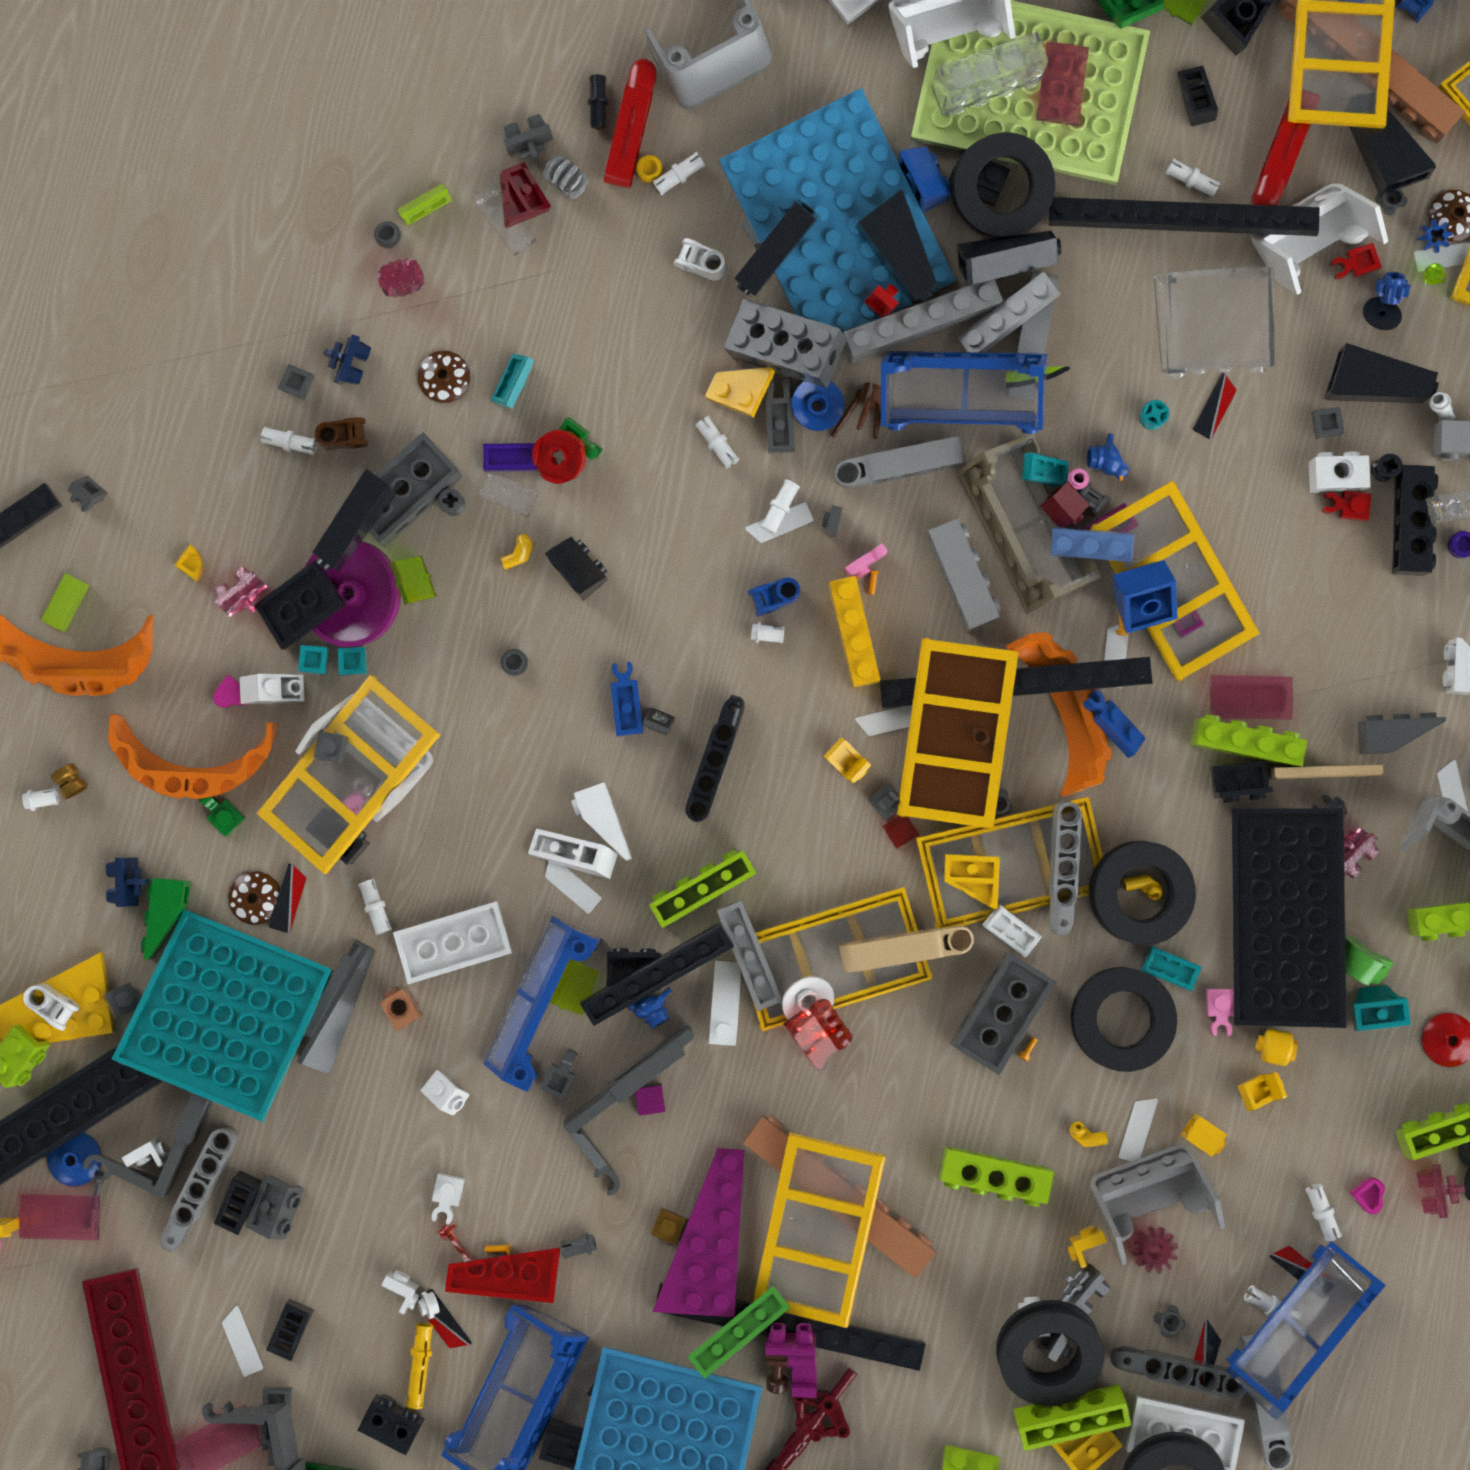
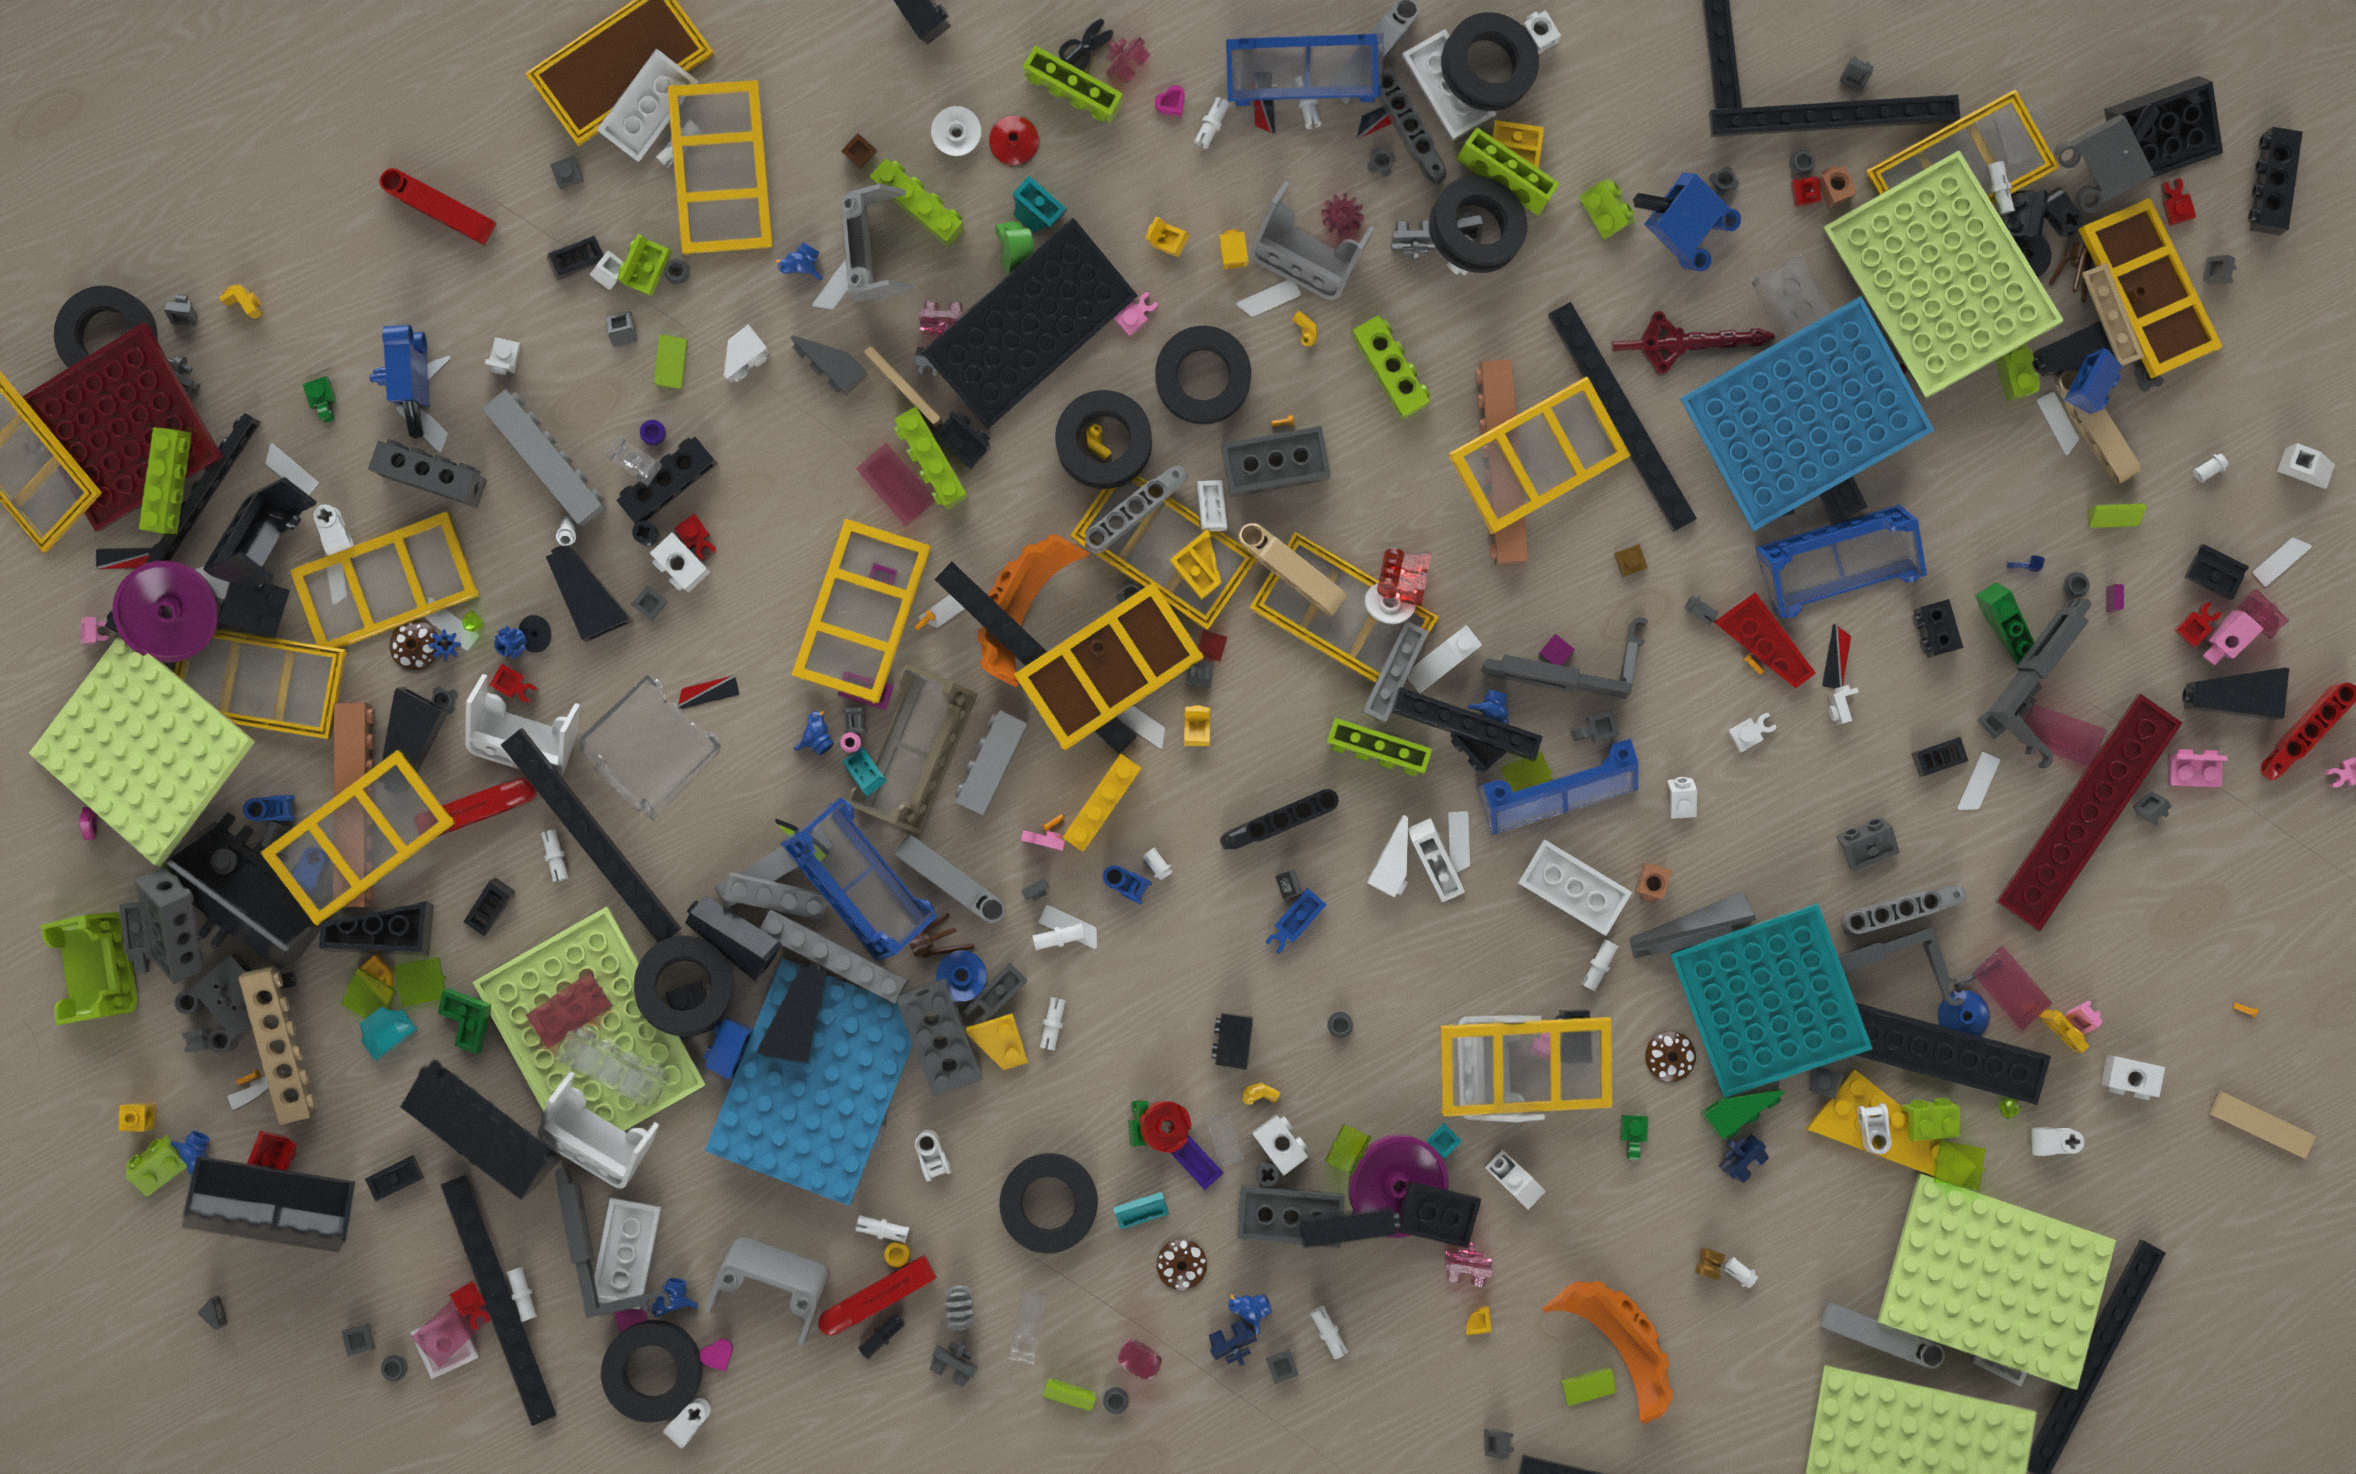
camera: 130 degrees left, 0 degrees up
(142, 1154) = (1917, 969): white bracket -> none
(179, 780) = (1635, 1180): orange windscreen -> none
(228, 693) = (1546, 1208): dark pink tile -> none
(245, 1186) = (1872, 877): black slope -> none
(288, 900) = (1650, 1031): sticker -> none
(313, 659) = (1468, 1169): teal plate -> none
(330, 747) = (1519, 1095): dark grey plate -> none
(344, 434) = (1288, 1297): reddish brown piece -> none
(361, 397) = (1251, 1308): none -> blue animal
(420, 1359) = (1873, 651): yellow pin -> none
(428, 1304) = (1835, 677): white plate -> none
(446, 1232) = (1776, 710): clear red piece -> none
(452, 523) = (1283, 1159): none -> white brick
(521, 195) = (1001, 1328): dark red wing -> none
(572, 280) = (1042, 1239): none -> black tyre
(706, 1259) = (1628, 514): magenta wing -> none
(738, 1332) = (1658, 447): bright green plate -> none
(776, 248) = (877, 1104): black slope -> none
(793, 1351) = (1636, 398): magenta hips -> none
(882, 300) = (846, 996): red tile -> none
(1065, 506) = (877, 734): dark red brick -> none
(1088, 1238) = (1375, 266): yellow bracket -> none
(1092, 544) = (888, 690): medium blue plate -> none
(1114, 723) = (1002, 562): blue plate -> none
(1146, 596) = (892, 620): blue slope -> none
(1159, 412) = (749, 728): teal wheel -> none
(1171, 968) = (1138, 373): teal plate -> none
(1277, 1047) = (1127, 253): yellow head -> none

